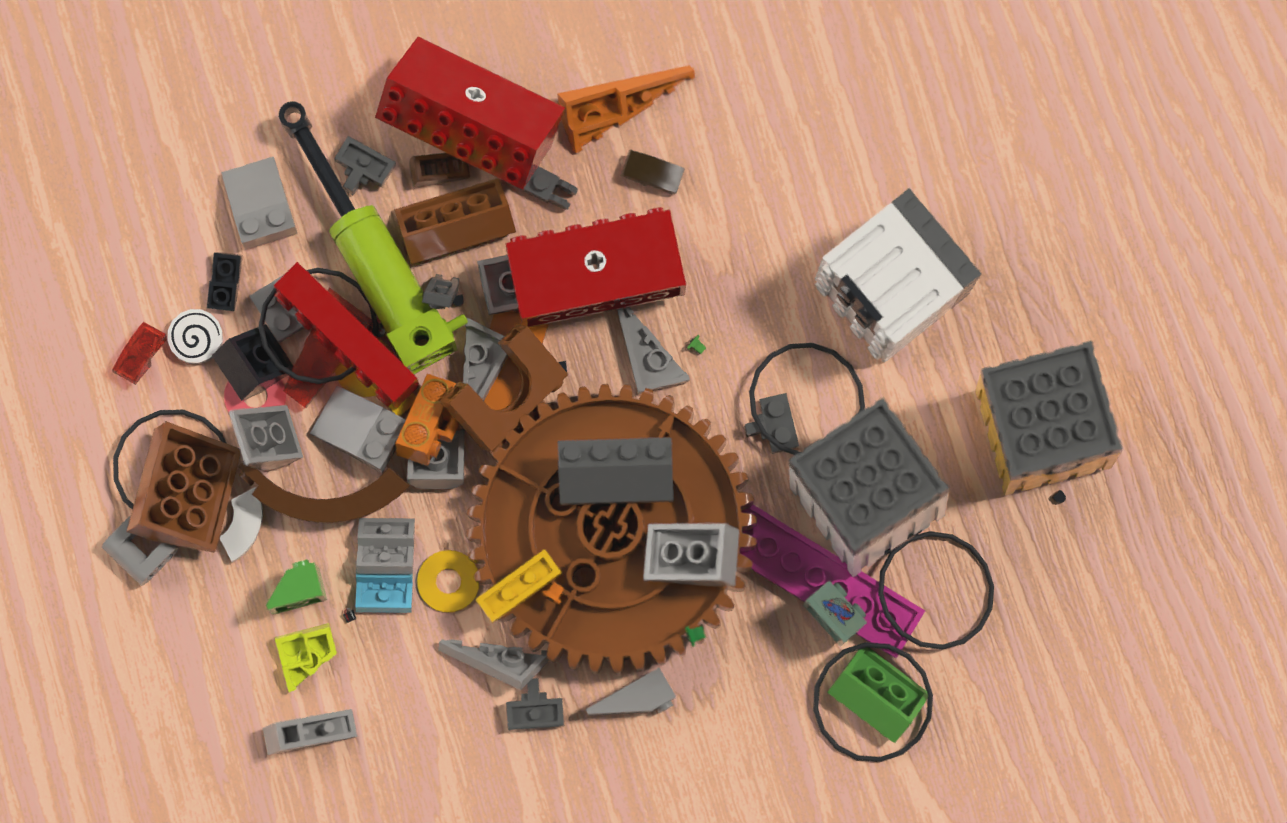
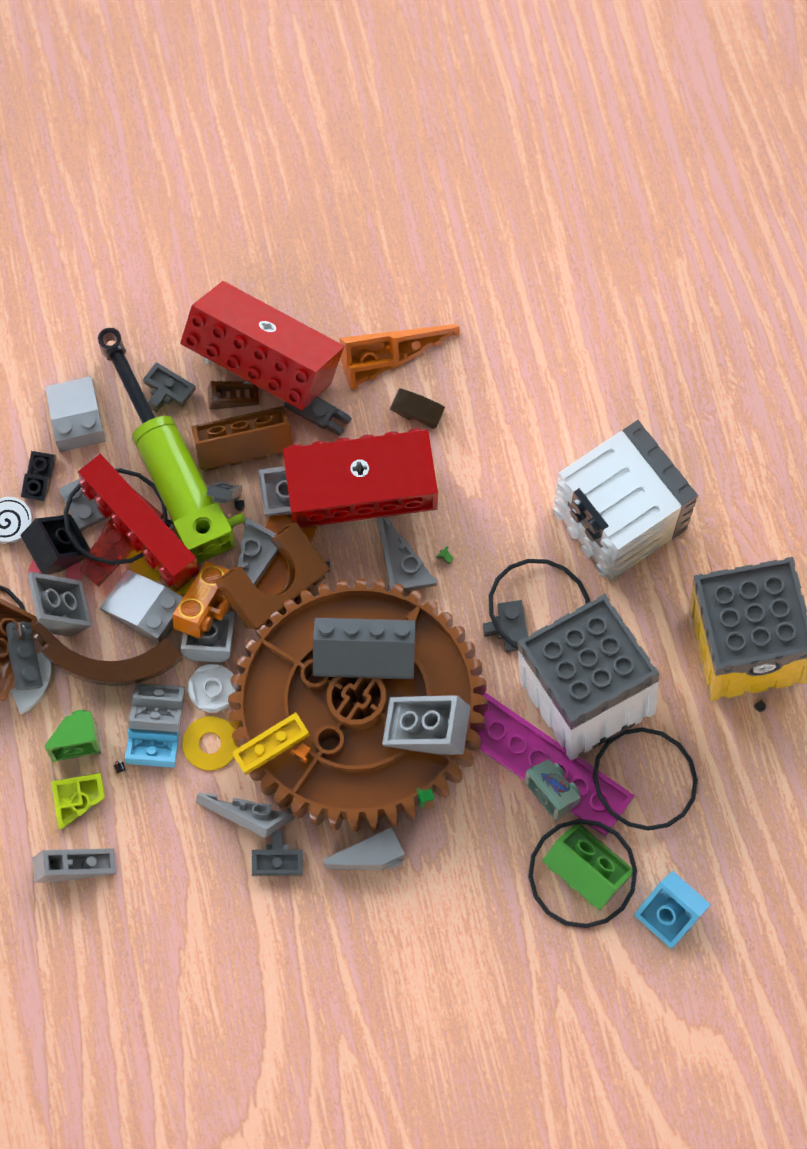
camera: 10 degrees right, 10 degrees down
(230, 499) = (23, 657): none -> dark grey hinge
(445, 518) = (211, 688): none -> white tile
(973, 736) = (672, 909): none -> medium azure slope

